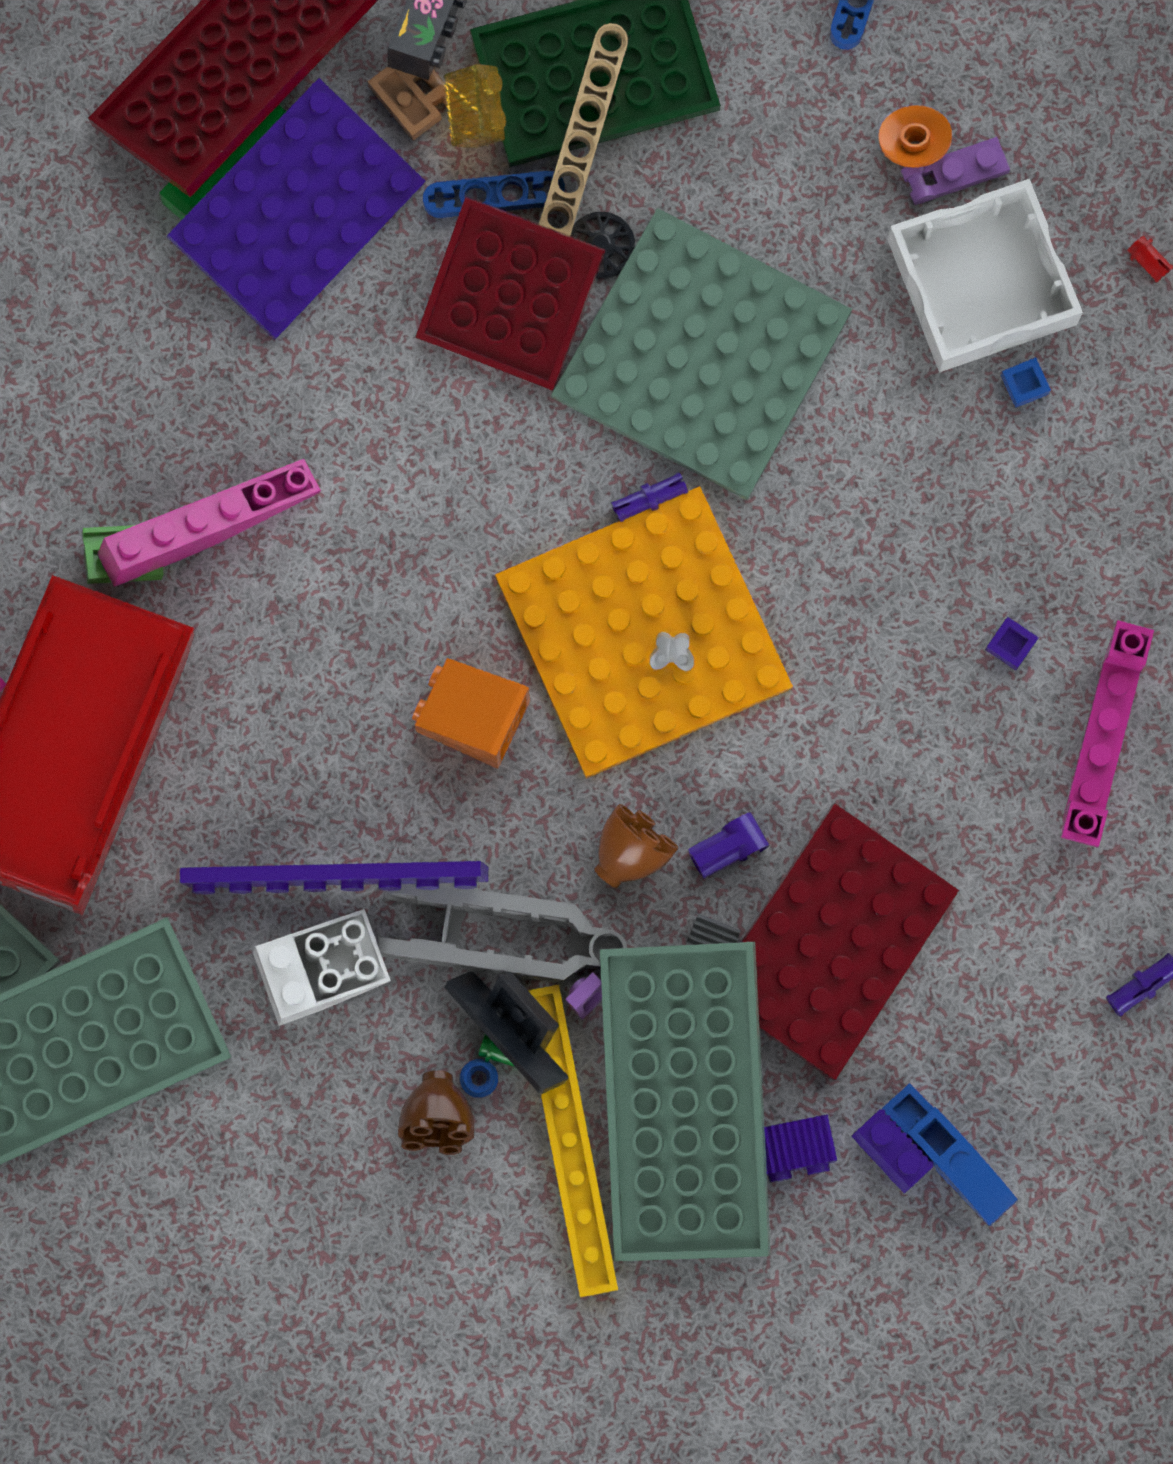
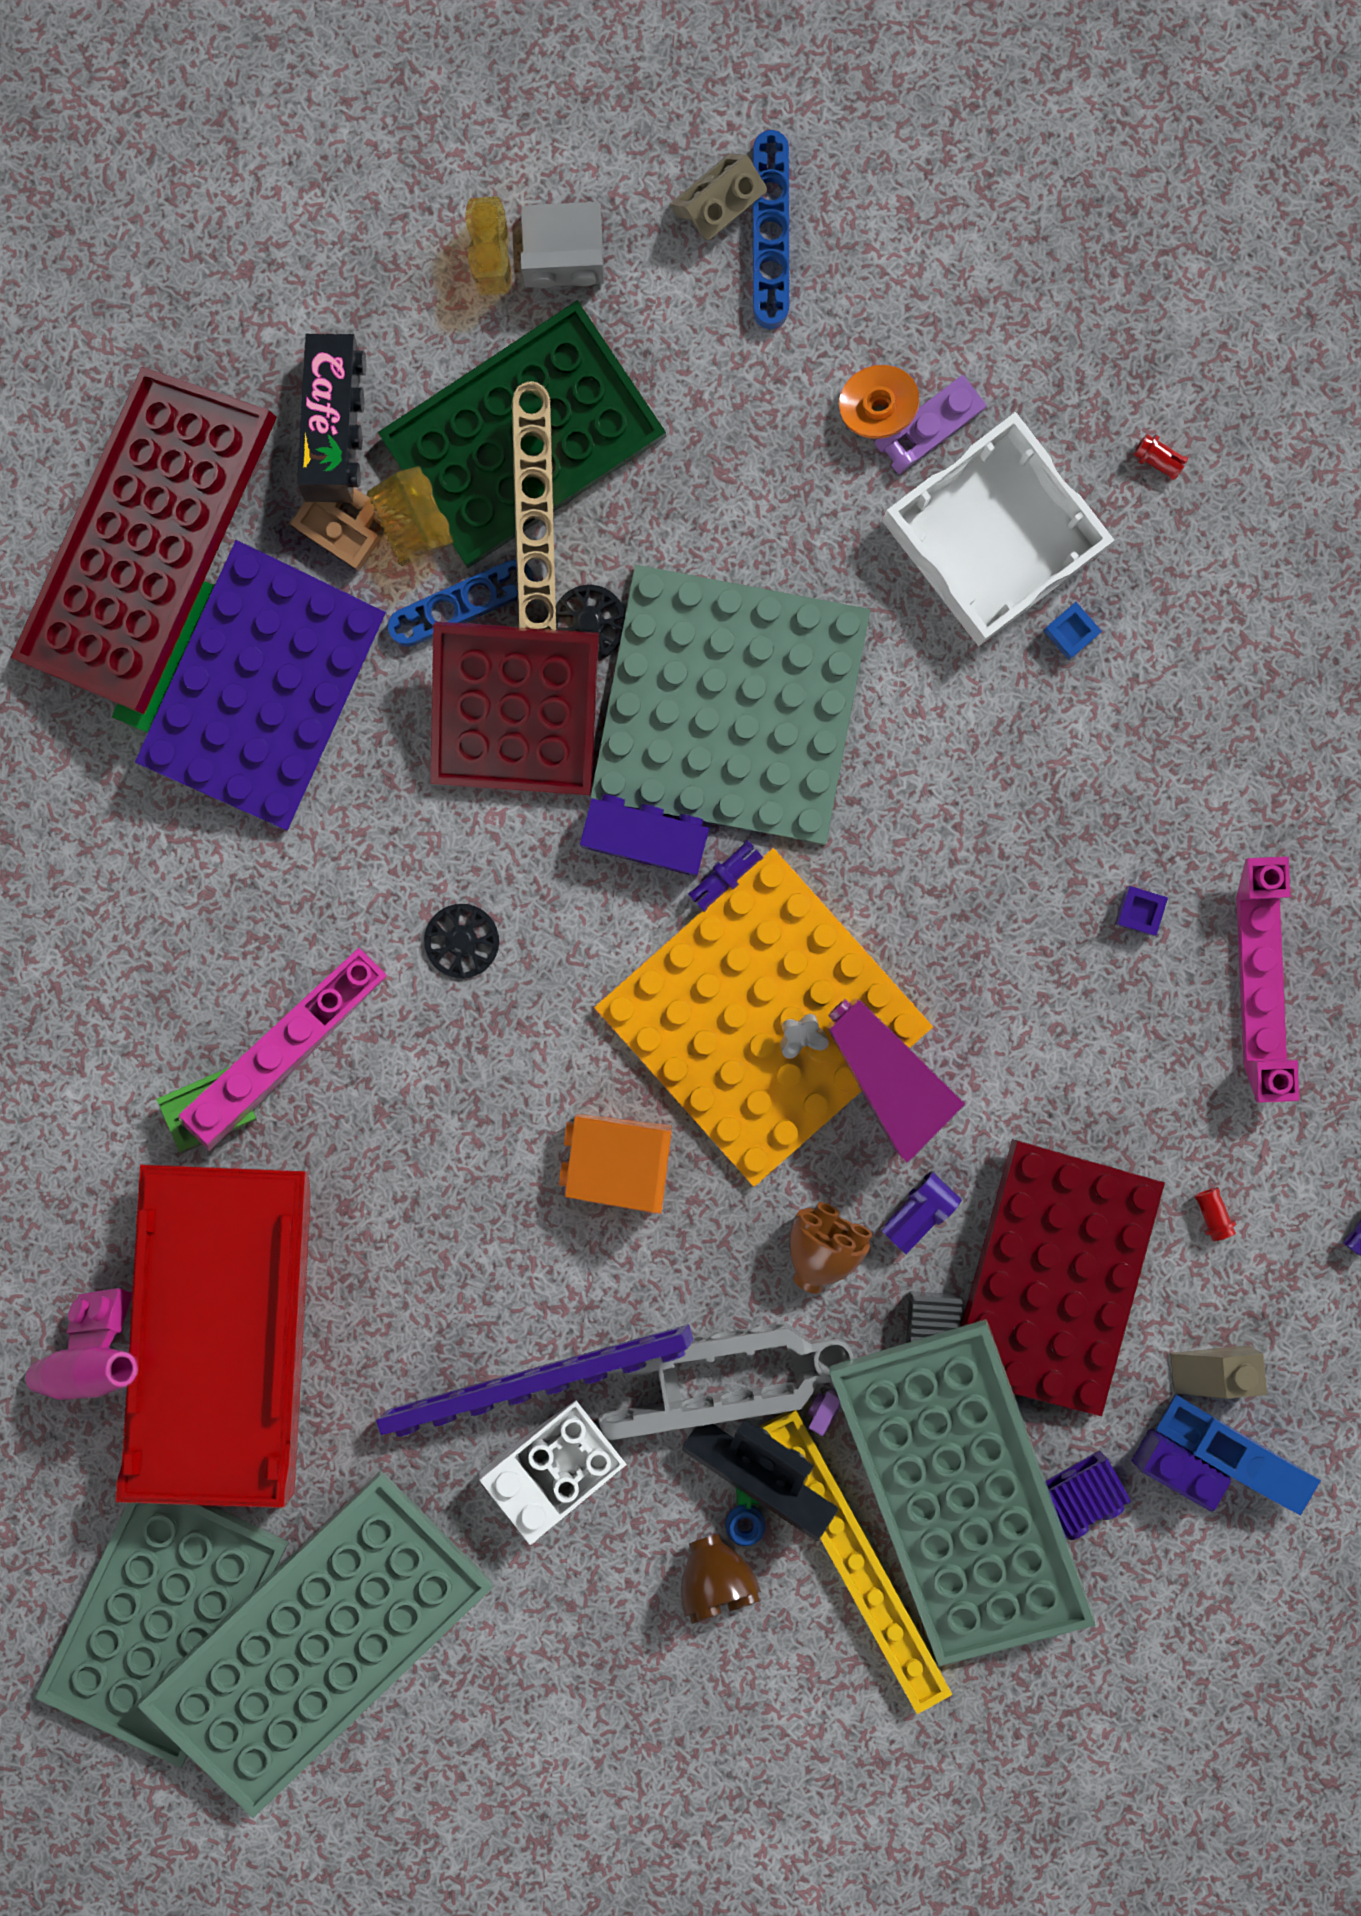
camera: 20 degrees left, 10 degrees up
(396, 481) = (461, 940): none -> black wheel
(589, 439) = (644, 835): none -> dark purple brick
(741, 714) = (897, 1085): none -> magenta slope
(954, 1074) = (1219, 1372): none -> dark tan slope
(996, 934) = (1215, 1214): none -> red pin

